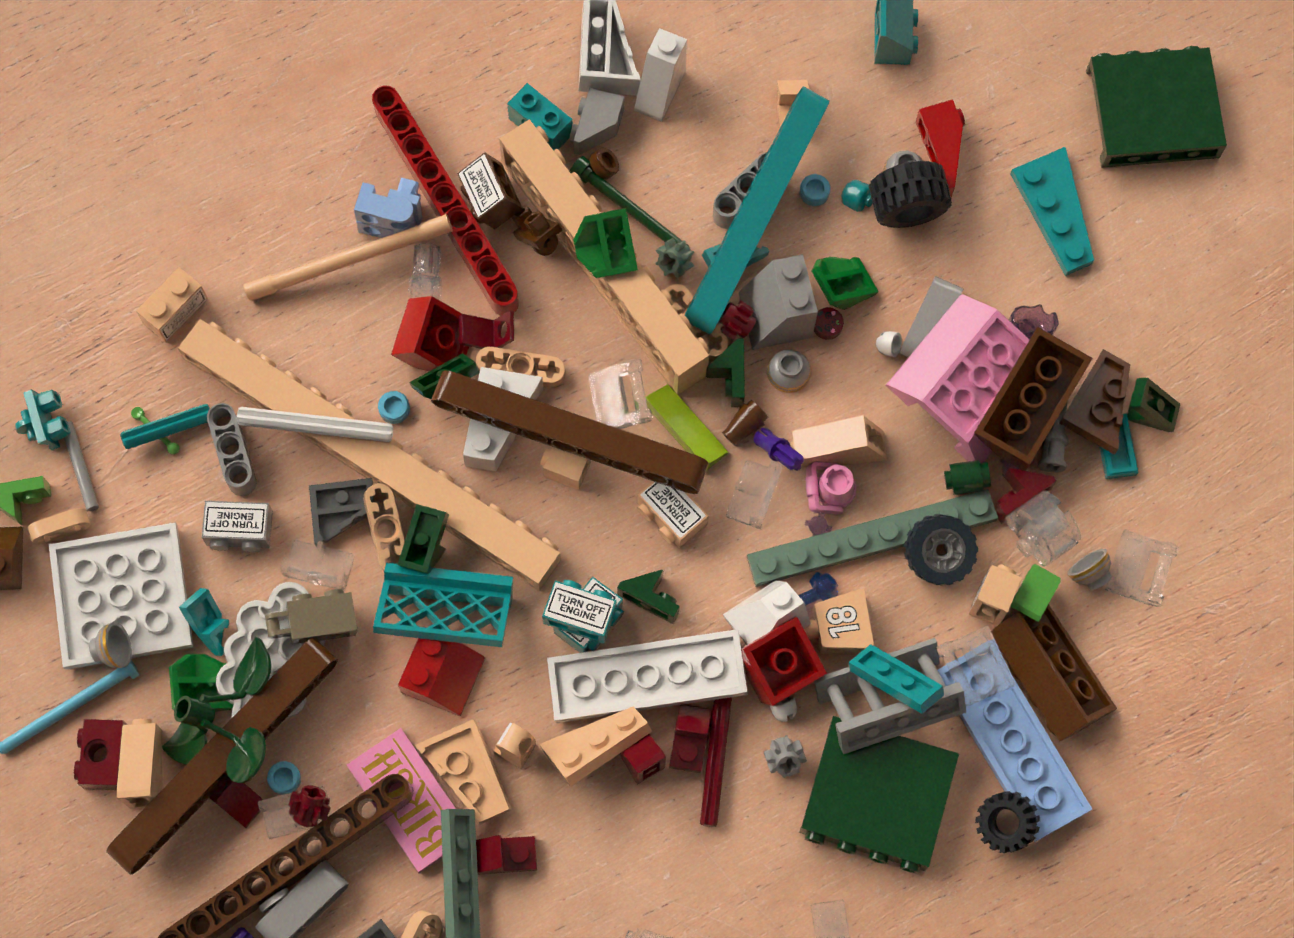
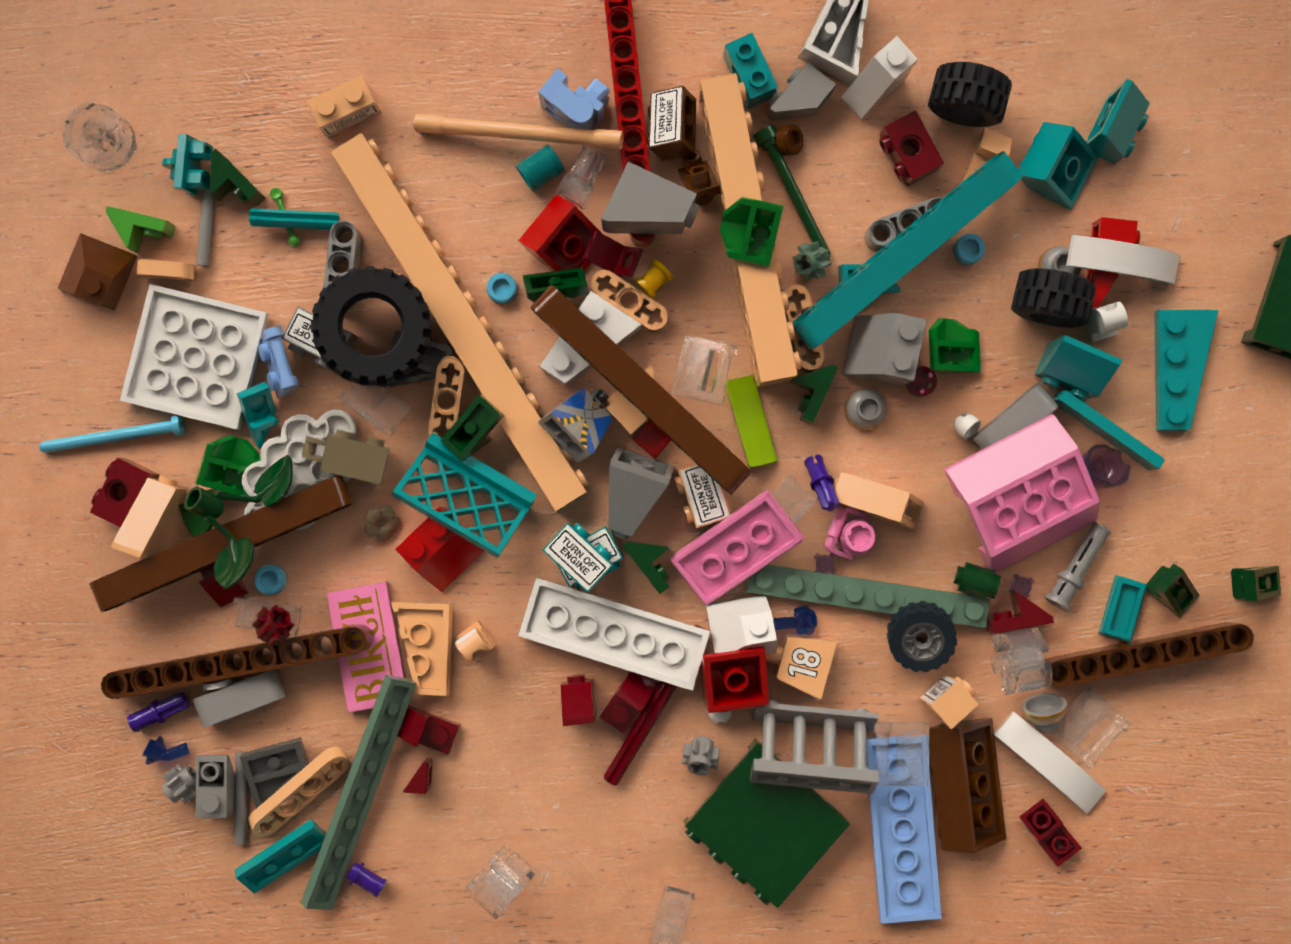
camera: 25 degrees right, 15 degrees up
(87, 412) = (227, 178): none -> dark green slope
(111, 646) = (165, 404): light grey piece -> none
(207, 562) = (274, 354): none -> light blue plate
(291, 444) = (365, 284): none -> black tyre
(315, 424) = (421, 279): white axle -> none
(373, 673) = (381, 522): none -> dark tan plant
(383, 282) = (540, 167): none -> teal piece
(502, 264) = (648, 205): none -> light grey slope
(520, 905) = (422, 779): none -> dark red slope
(523, 493) = (579, 422): none -> torso
(535, 335) = (654, 279): none -> yellow bush
(593, 745) = (541, 675): light nougat wing -> none
(600, 481) = (651, 439): none -> red tile
(605, 535) = (634, 489): none -> light grey slope
(712, 110) = (910, 131): none -> dark red brick
(727, 542) = (737, 547): none -> bright pink tile
(737, 320) = (840, 347): dark red gear -> none
(745, 422) = (805, 441): reddish brown cone -> none
(749, 54) = (970, 94): none -> black tyre
(856, 195) = (1005, 271): teal piece -> none
(858, 83) = (1058, 164): none -> teal slope
(896, 678) = (825, 743): teal plate -> none
(957, 134) = (1123, 258): none -> white slope
(962, 246) = (1076, 367): none -> teal slope
(967, 197) = (1106, 321): none -> white leg
(990, 830) = (850, 908): black tyre -> none
(1020, 291) = (1108, 430): none -> teal tile
(1032, 398) = (1071, 543): reddish brown slope -> none
(1035, 592) = (987, 716): bright green slope -> none
(1099, 403) = (1126, 566): reddish brown wing -> none
(1123, 615) = (1050, 762): none -> white slope
(1154, 683) = (1050, 832): none -> dark red slope
(1167, 466) = (1159, 650): none -> reddish brown beam
(1224, 368) = (1256, 583): none -> dark green slope

